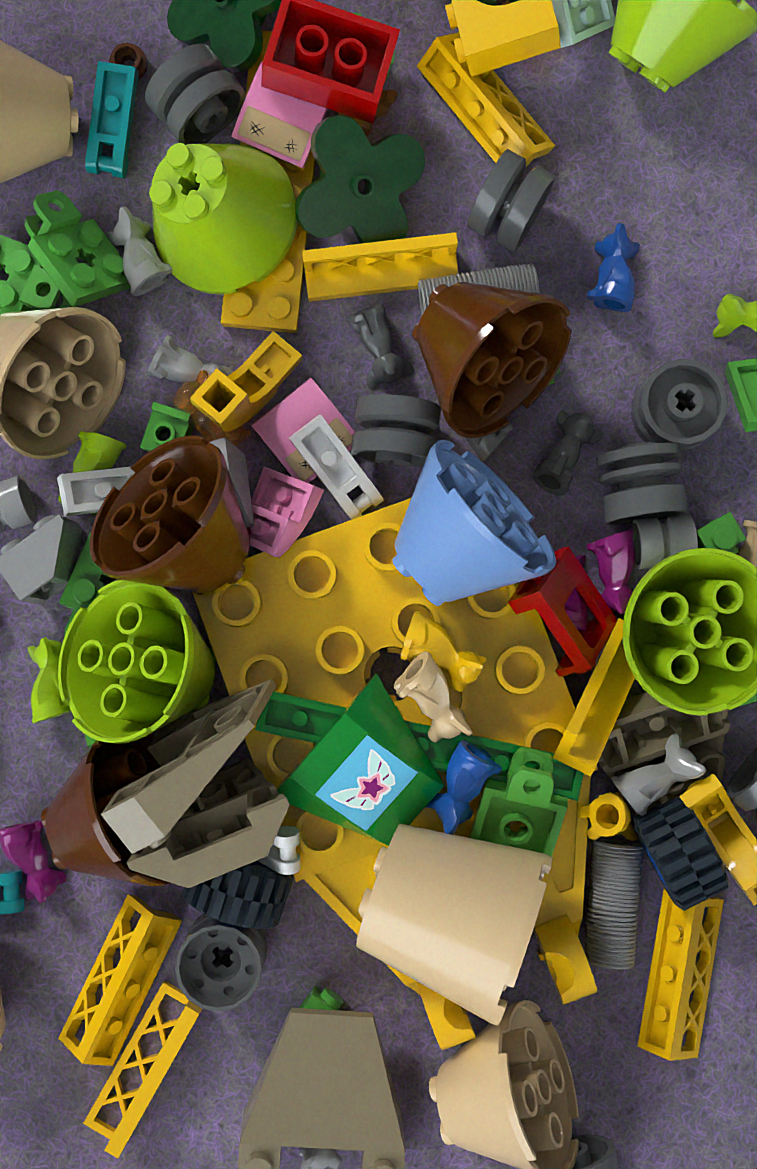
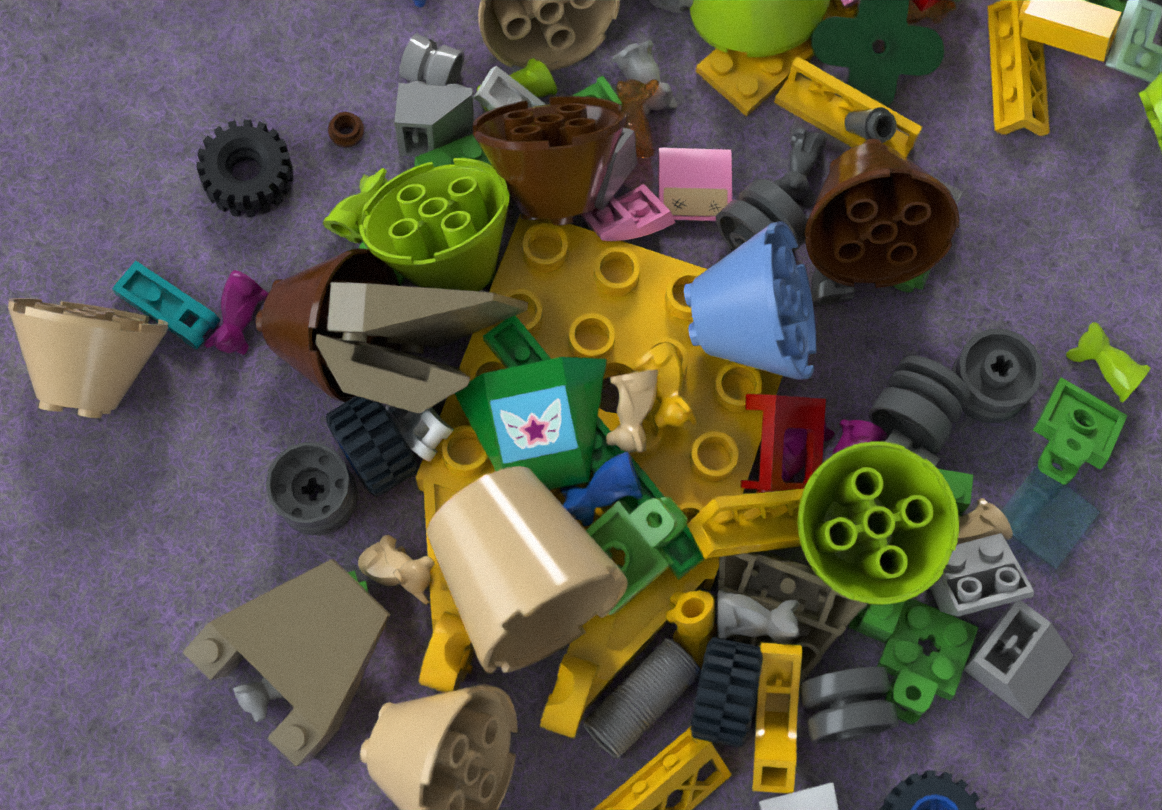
camera: 30 degrees right, 15 degrees down
(123, 986) = (221, 455): yellow fence -> none
(152, 1079) = (184, 537): yellow fence -> none
(242, 394) = (675, 120): yellow arch -> none
(335, 466) = (697, 216): white plate -> none
(336, 964) = (395, 567): none -> tan animal
(414, 264) = (872, 124): none -> dark grey cone
(507, 199) = (981, 137): dark grey wheel -> none
(564, 455) = (861, 349): dark grey animal -> none
(615, 279) = (1020, 251): blue animal -> none

